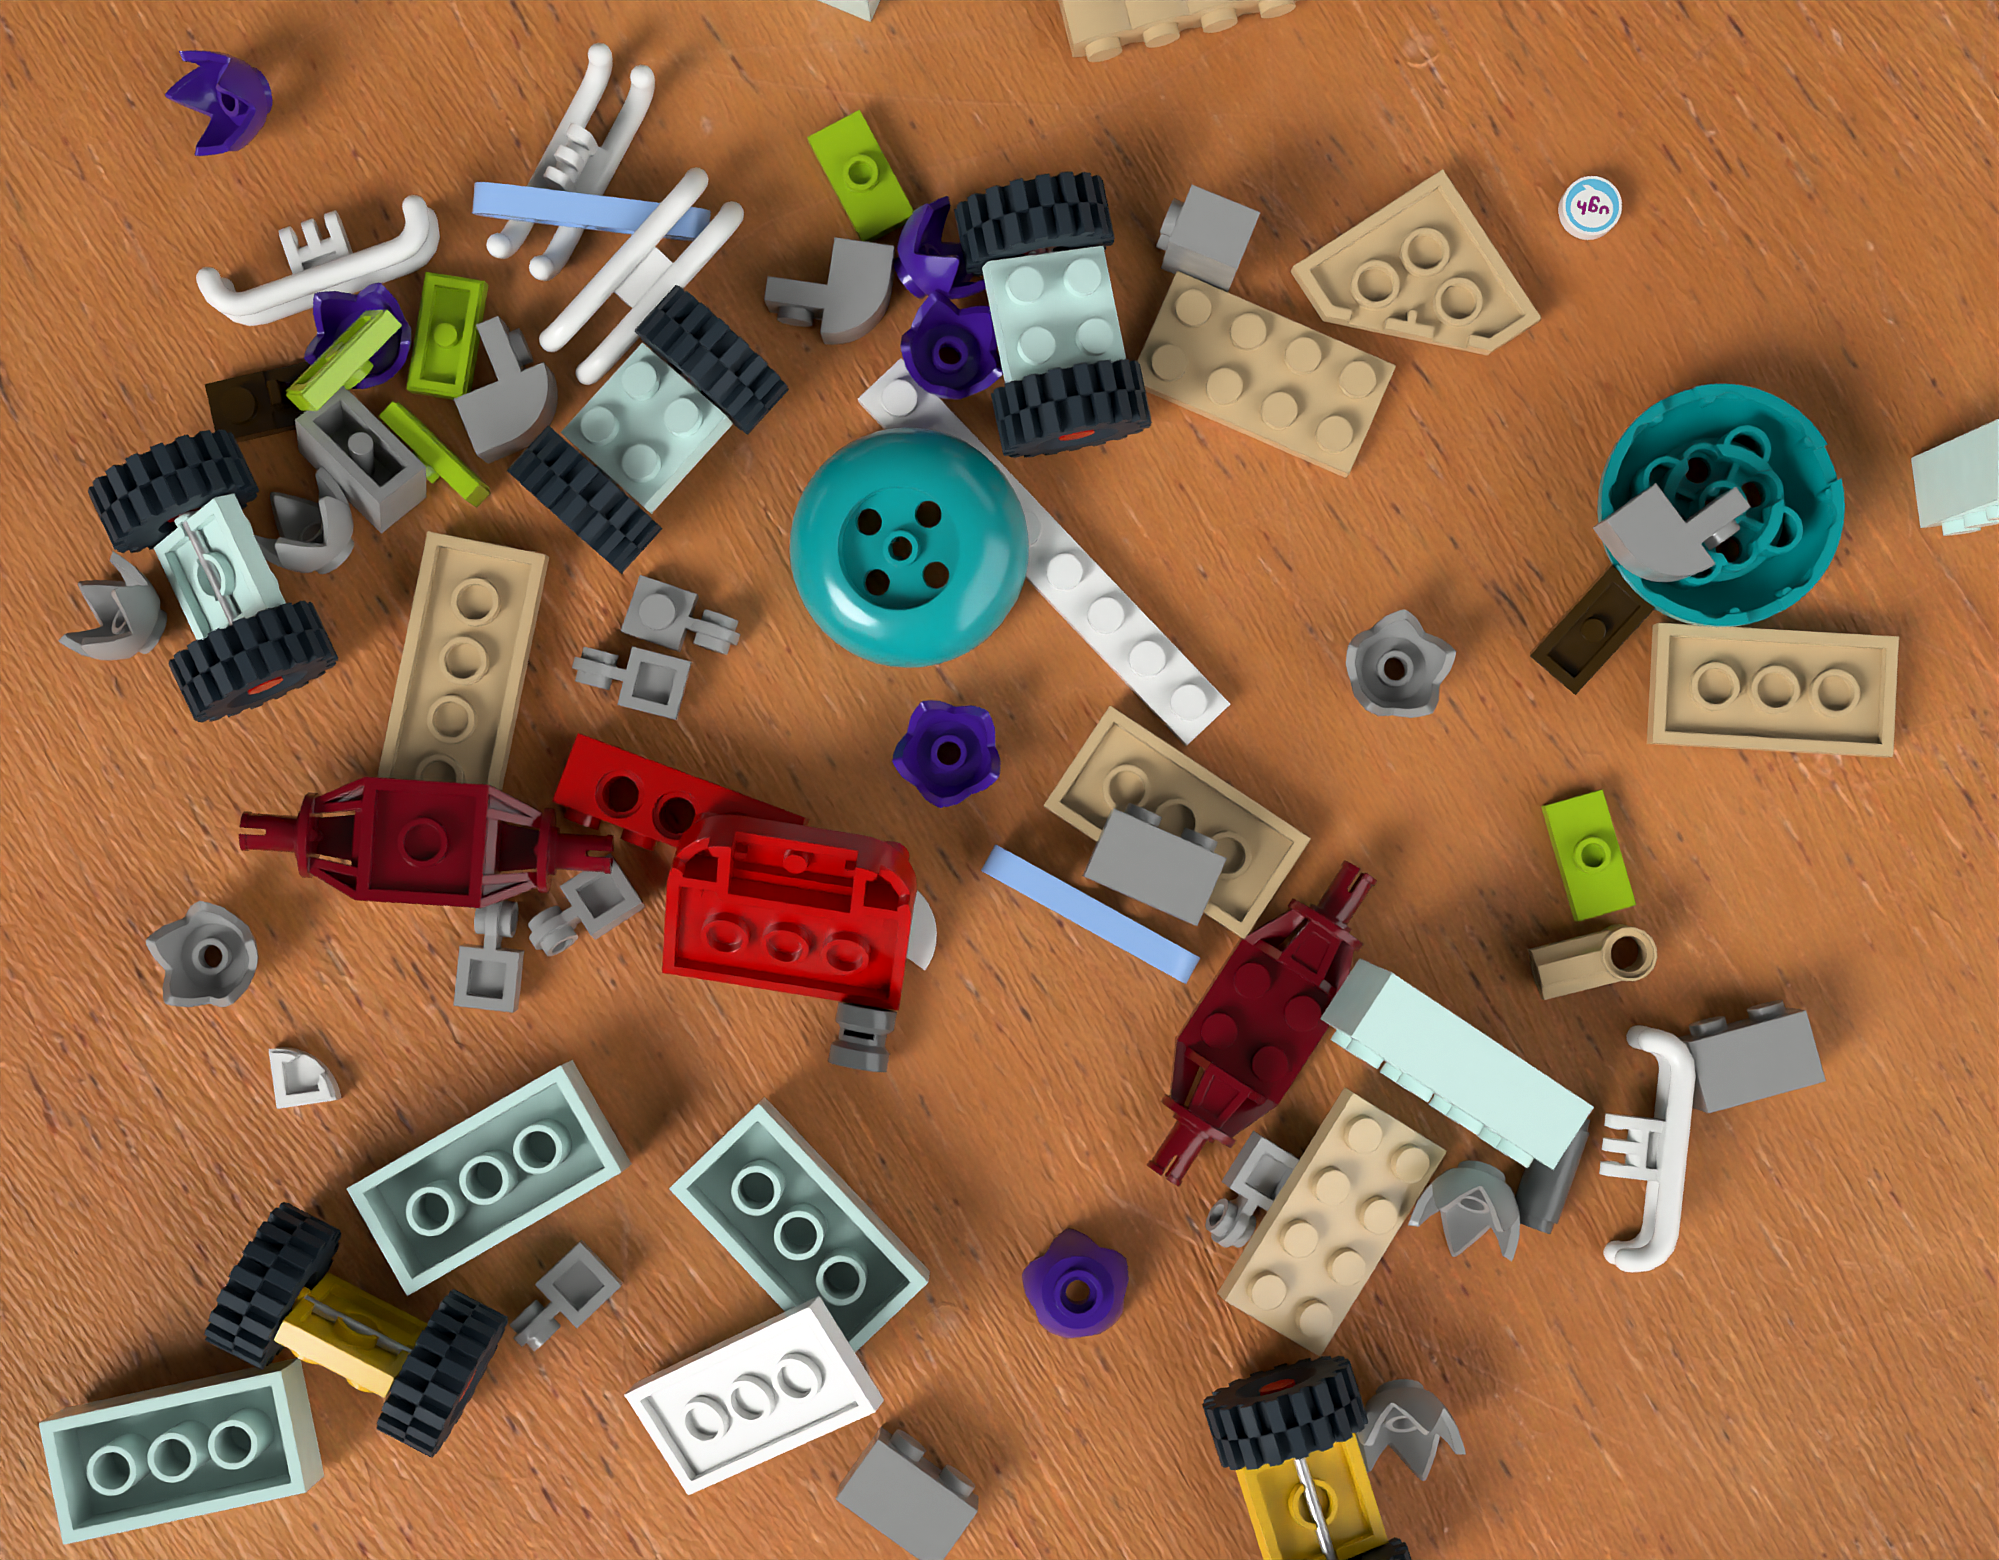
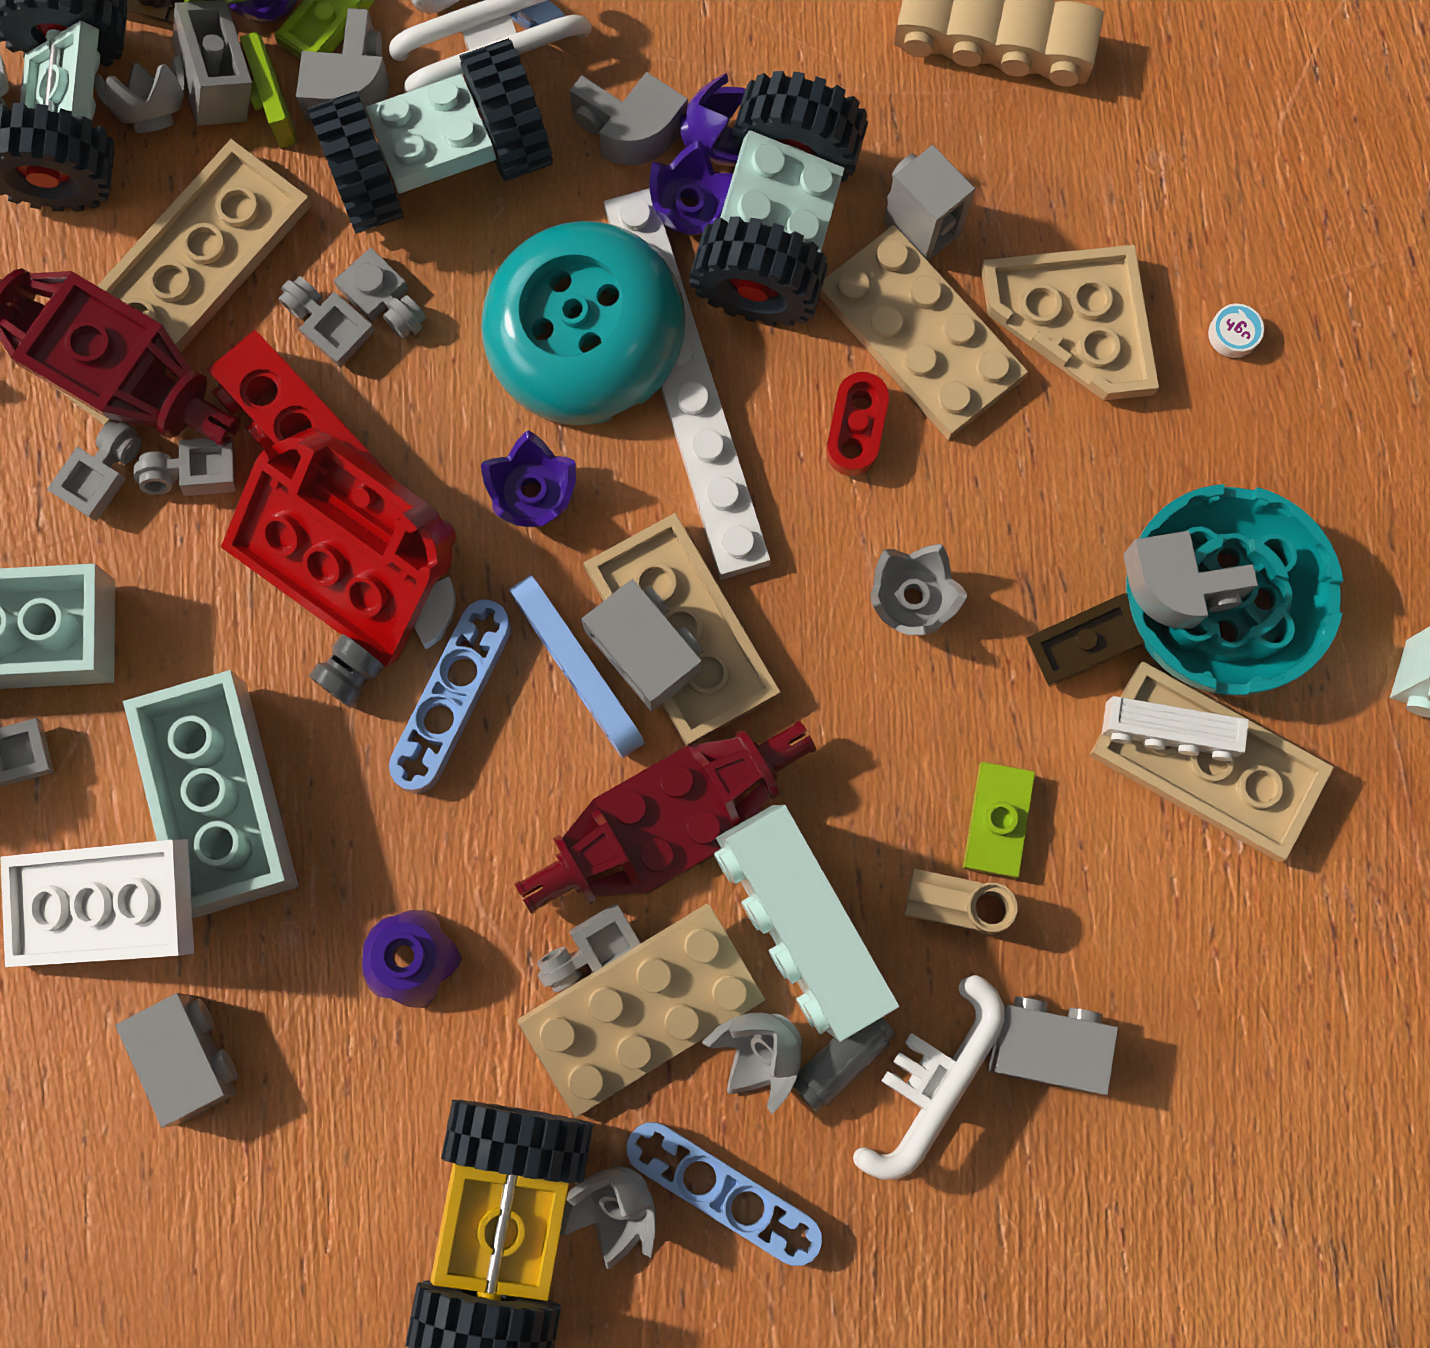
camera: 25 degrees right, 10 degrees down
(861, 177) = (691, 46): lime plate -> none
(983, 1006) = (444, 693): none -> light blue beam
(1247, 513) = (855, 425): none -> red plate
(1496, 1359) = (719, 1199): none -> light blue beam
(1725, 679) = (1175, 727): none -> white piece

